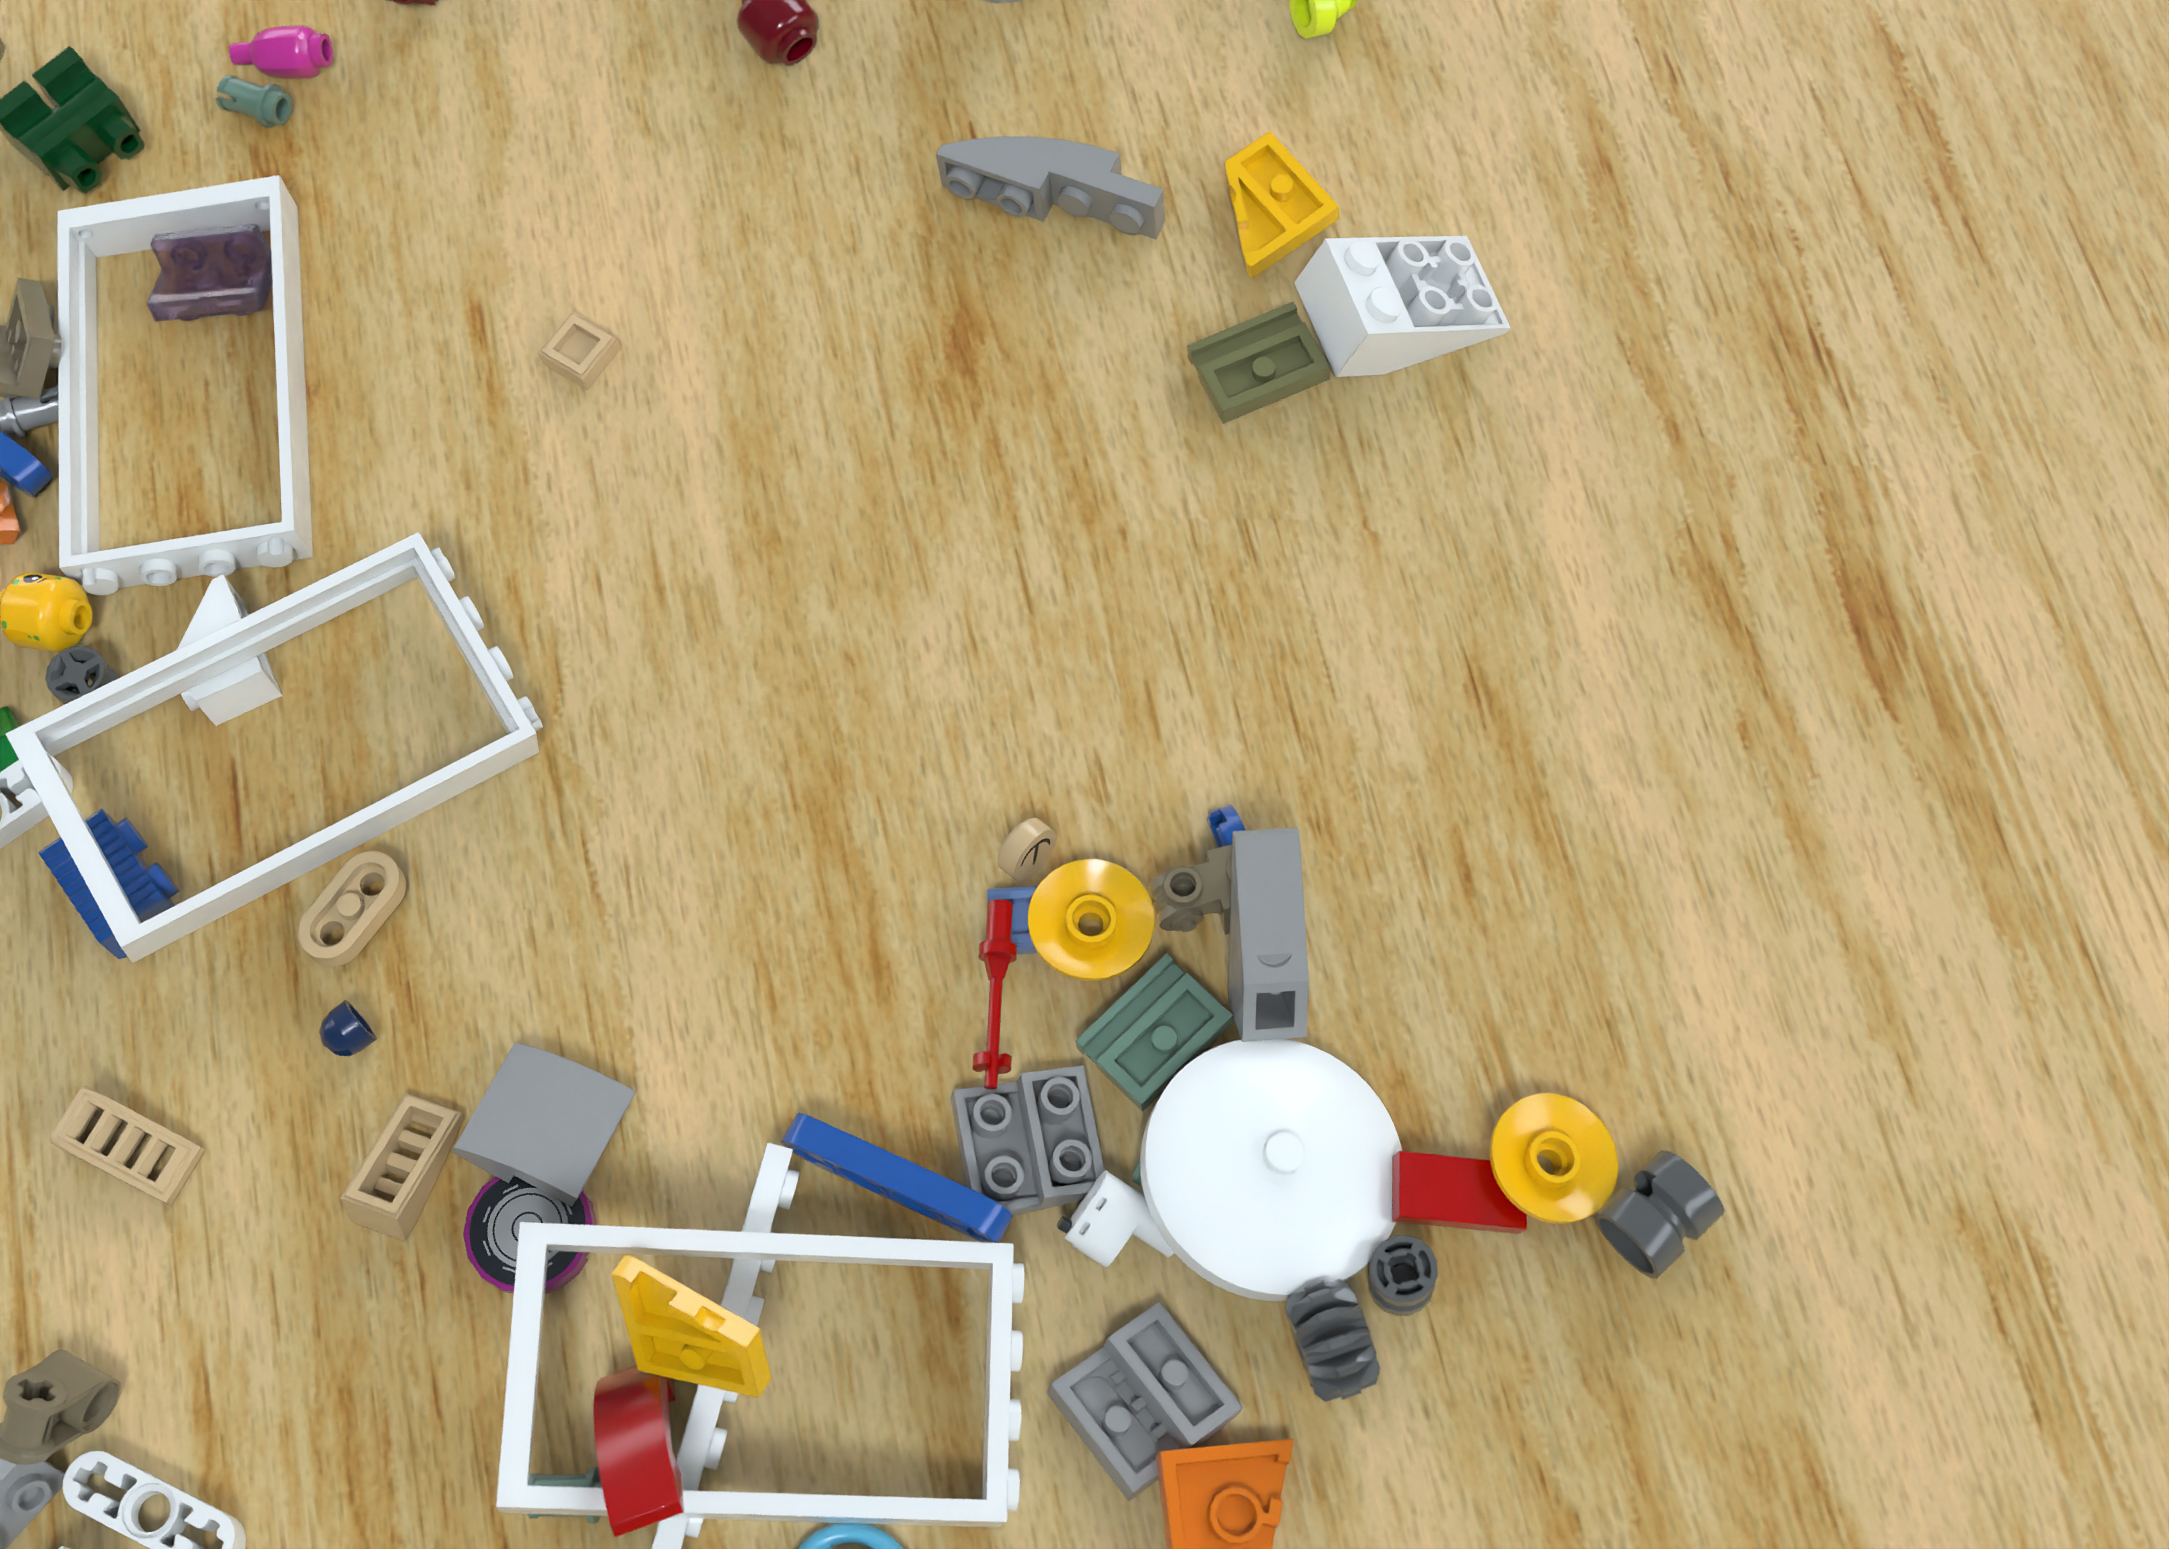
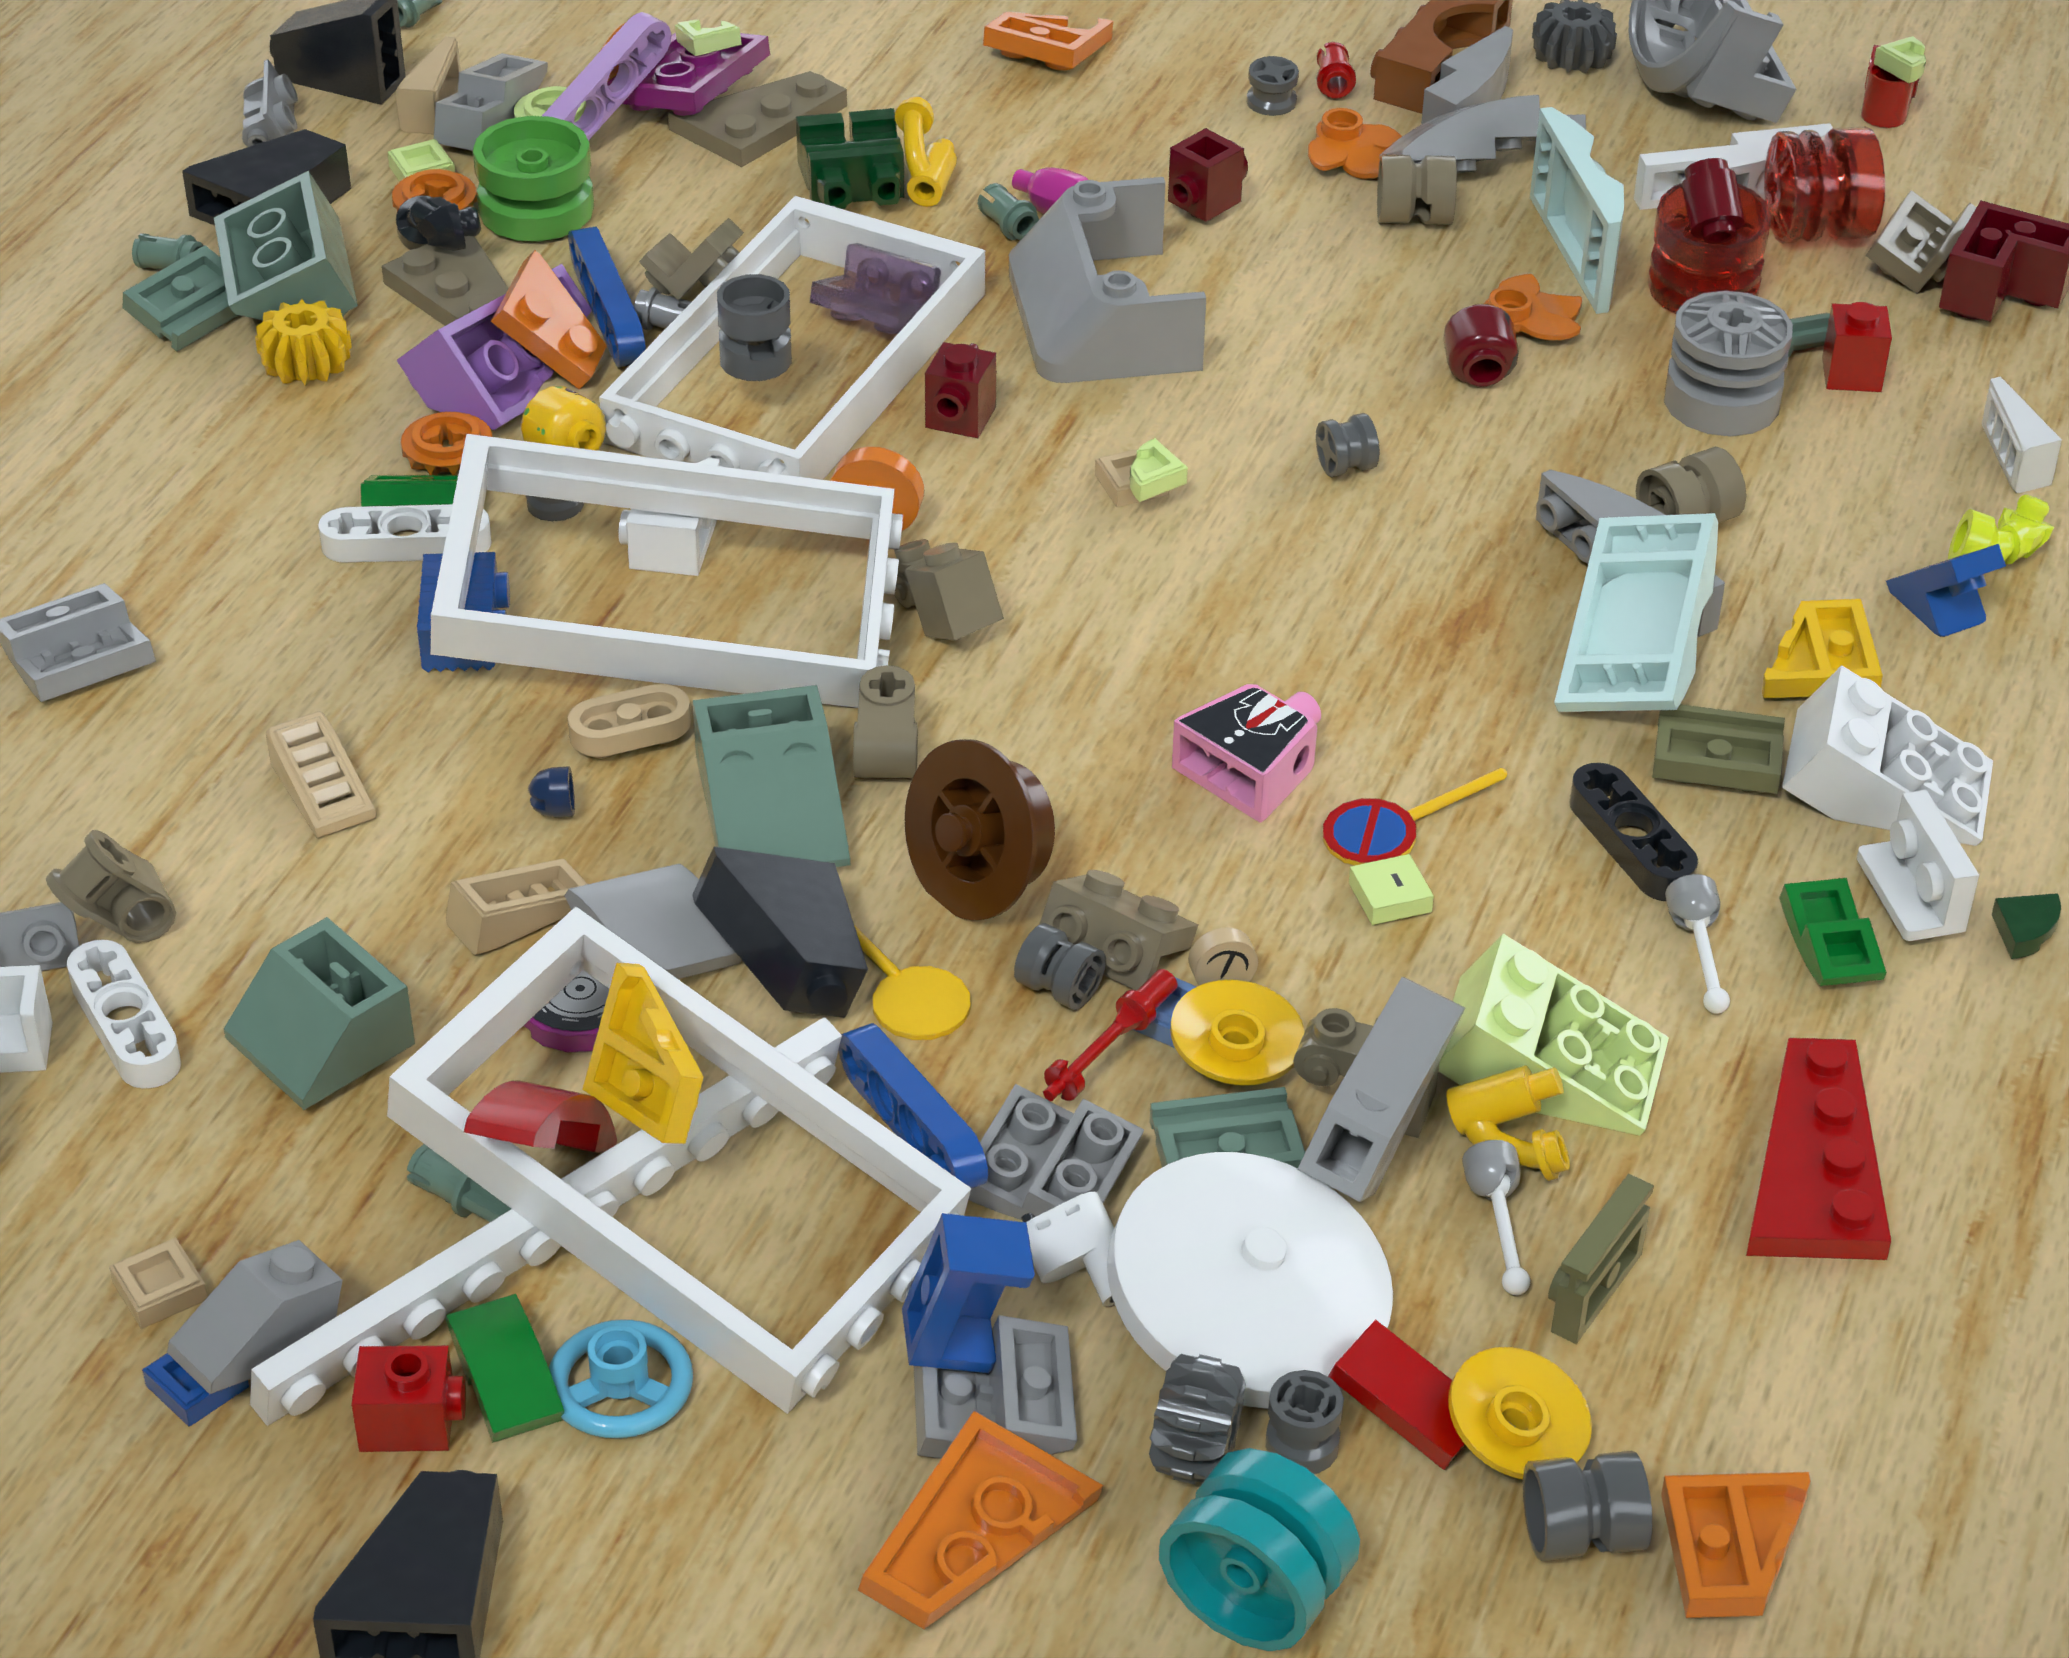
camera: 25 degrees right, 25 degrees down
(139, 84) = (928, 165): none -> yellow plant
(152, 412) = (754, 327): none -> dark grey wheel
(336, 1416) = (320, 1014): none -> sand green slope
(368, 348) = (960, 389): none -> dark red brick
(382, 517) = (887, 470): none -> orange piece
(415, 209) = (1102, 324): none -> light grey windscreen
(524, 592) = (948, 588): none -> dark tan brick
(532, 910) = (771, 774): none -> sand green slope
(582, 781) = (886, 725): none -> dark tan piece
(603, 341) = (1155, 471): none -> yellowish green tile
(662, 1058) = (786, 926): none -> black slope
(742, 207) = (1347, 444): none -> dark grey wheel
(750, 857) = (977, 828): none -> reddish brown wheel
(801, 1044) = (917, 999): none -> yellow piece
(892, 603) = (1248, 747): none -> torso
(903, 942) = (1059, 966): none -> dark grey wheel
(914, 869) = (1123, 925): none -> dark tan bracket
(1044, 620) = (1381, 829): none -> piece
(1063, 92) = (1695, 485): none -> dark tan wheel
(1086, 1355) = (959, 1289): none -> blue panel
(1100, 678) = (1391, 889): none -> yellowish green tile
(1117, 267) = (1639, 614): none -> light aqua slope
(1237, 469) = (1630, 807): none -> black beam
(1324, 72) = (1947, 592): none -> blue slope
(1333, 765) = (1543, 1018): none -> yellowish green slope
(1344, 849) = (1508, 1096): none -> yellow plant
(1347, 548) = (1695, 906): none -> hinge
(1376, 929) = (1494, 1172): none -> hinge
(1463, 507) = (1830, 934): none -> green slope
(1469, 1440) = (1259, 1549): none -> teal wheel
(1499, 405) = (1921, 872): none -> white bracket
(1514, 946) = (1600, 1259): none -> olive plate
(1598, 396) = (2026, 921): none -> dark green tile
(1608, 758) = (1820, 1163): none -> red wing
(1770, 1164) = (1731, 1537): none -> orange wing

